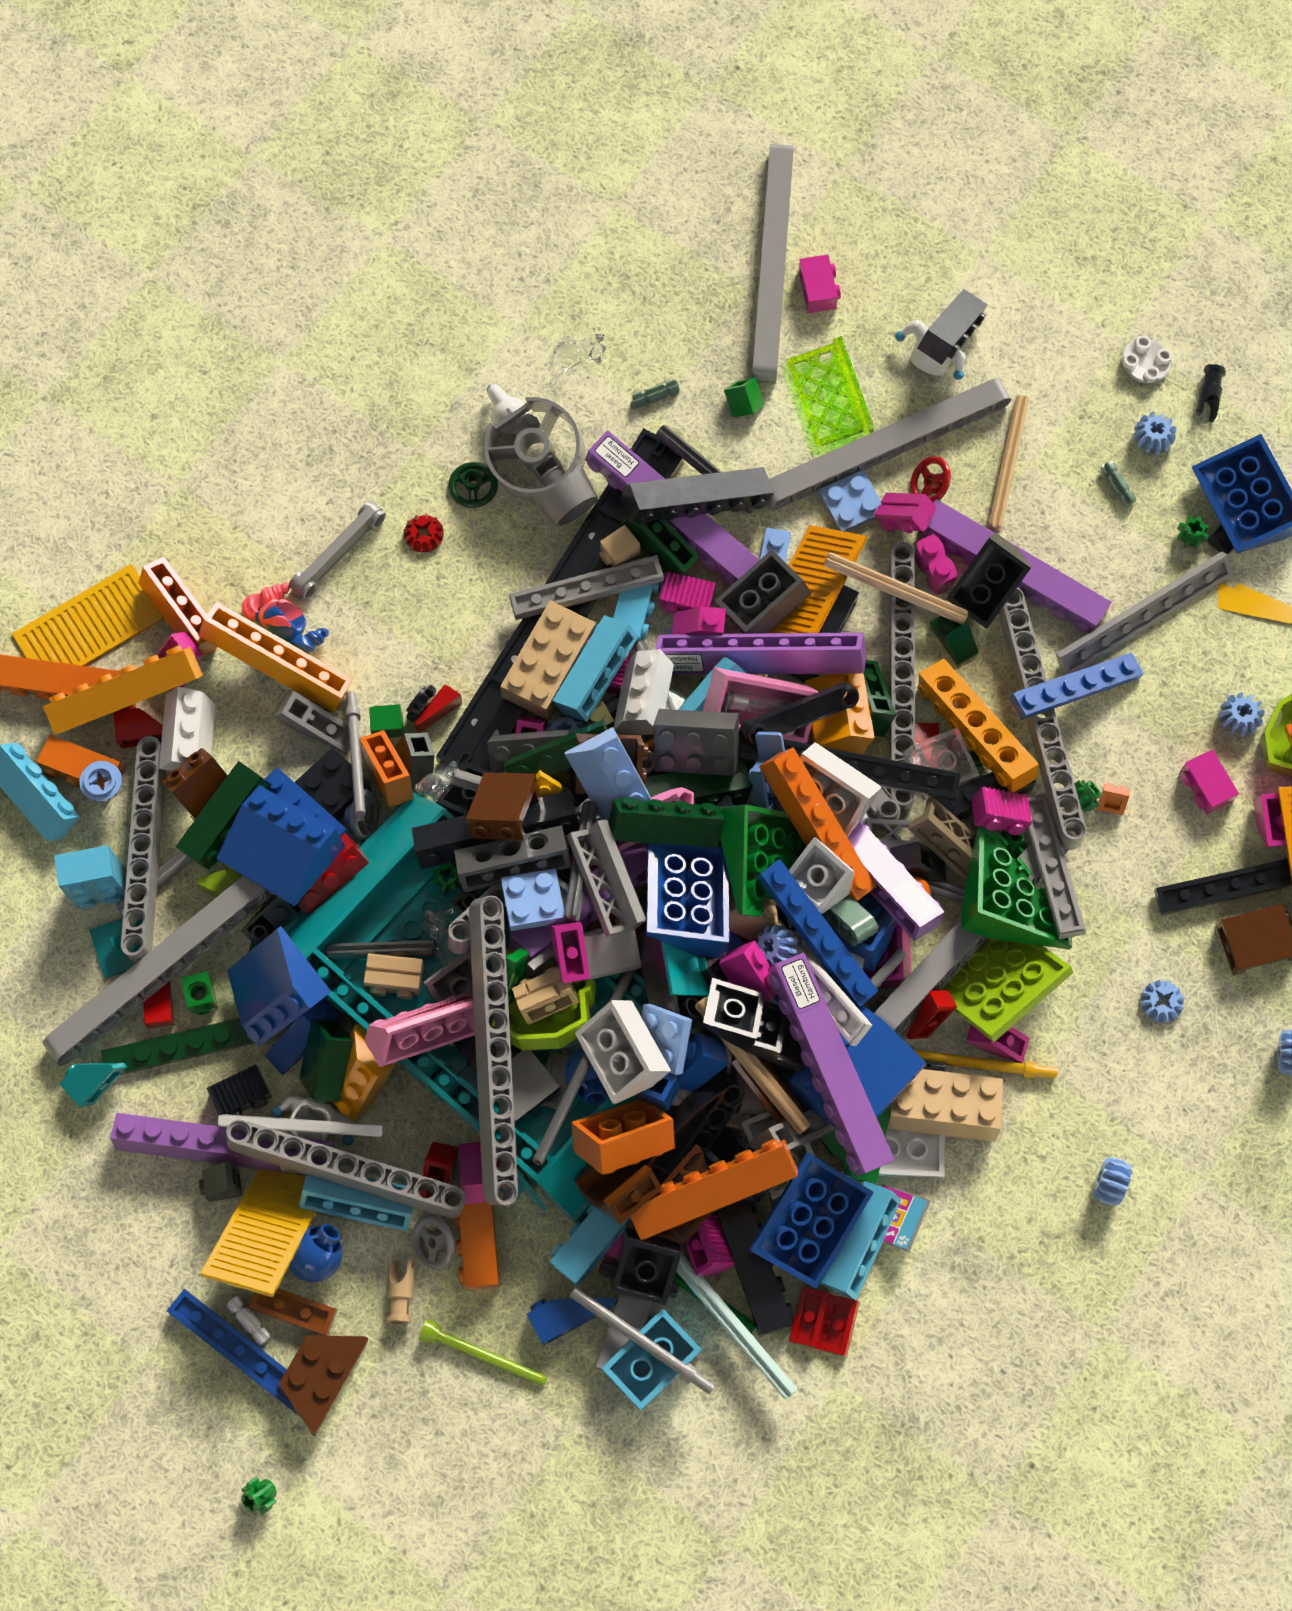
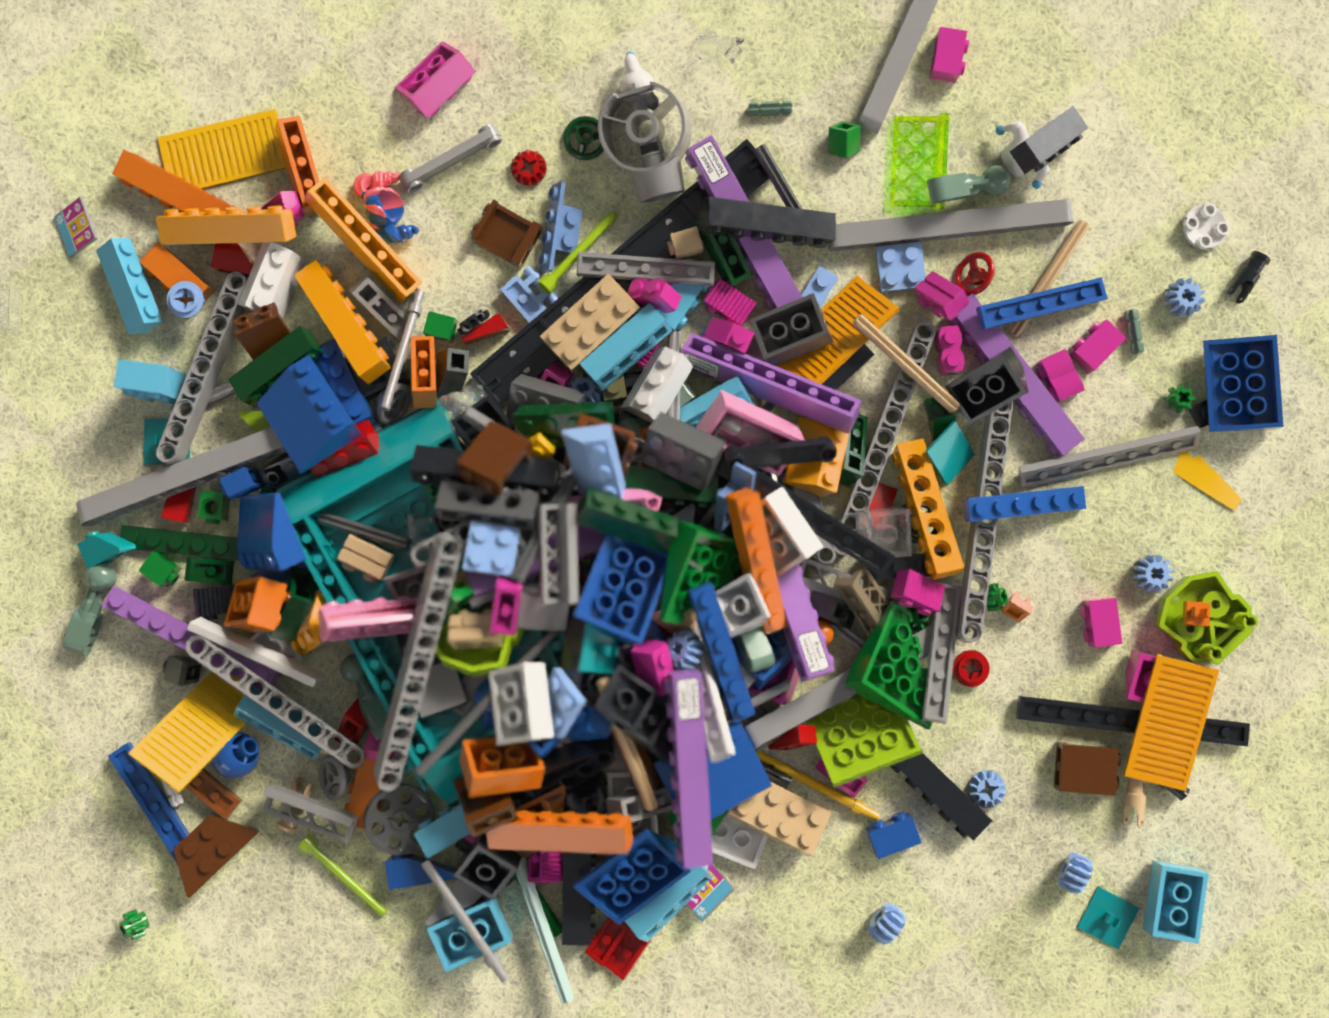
camera: 20 degrees right, 15 degrees up
(94, 1164) = (87, 619): none -> sand green beam
(161, 1082) = (160, 569): none -> green brick
(216, 1063) = (209, 570): none -> dark green slope
(223, 952) = (241, 482): none -> blue brick
(281, 746) = (342, 321): none -> light orange brick
(287, 1070) = (255, 605): none -> orange brick
(294, 477) = (435, 79): none -> dark pink slope
(422, 1275) = (312, 807): none -> light grey fence
(423, 606) = (506, 234): none -> reddish brown panel
(454, 1141) = (369, 702): none -> sand green beam
(464, 662) = (523, 298): none -> light blue plate
(479, 580) = (561, 228): none -> medium blue bracket
(488, 636) = (549, 282): none -> lime piece
(519, 1273) = (390, 826): none -> dark grey wedge
(608, 602) = (655, 292): none -> dark pink brick
(880, 400) = (959, 186): none -> sand green beam
(978, 664) = (950, 453): none -> teal piece
(1011, 485) = (1041, 303): none -> blue plate
(1060, 550) = (1059, 376): none -> dark pink brick
(1080, 1084) = (893, 834): none -> blue brick
(1086, 509) = (1097, 346): none -> dark pink brick
(1098, 870) = (976, 677): none -> red gear
(1111, 1019) = (943, 793): none -> black brick

